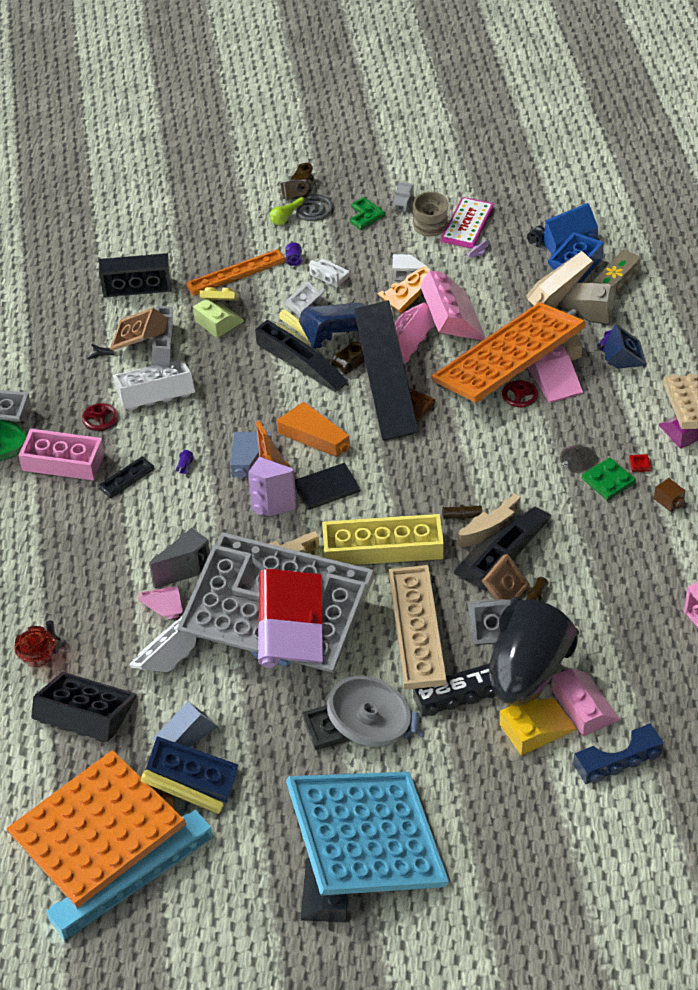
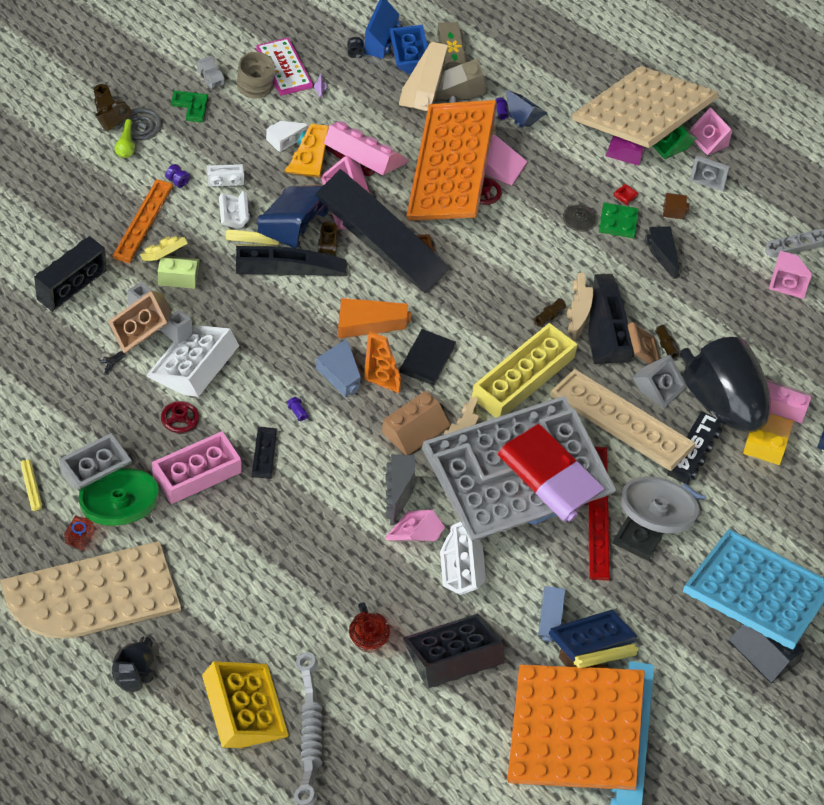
camera: 50 degrees left, 5 degrees up
(256, 522) = (415, 423): none -> medium nougat slope
(271, 487) = (405, 380): lavender slope -> none
(318, 687) = (599, 531): none -> red tile
(621, 518) = (663, 248): none -> black slope

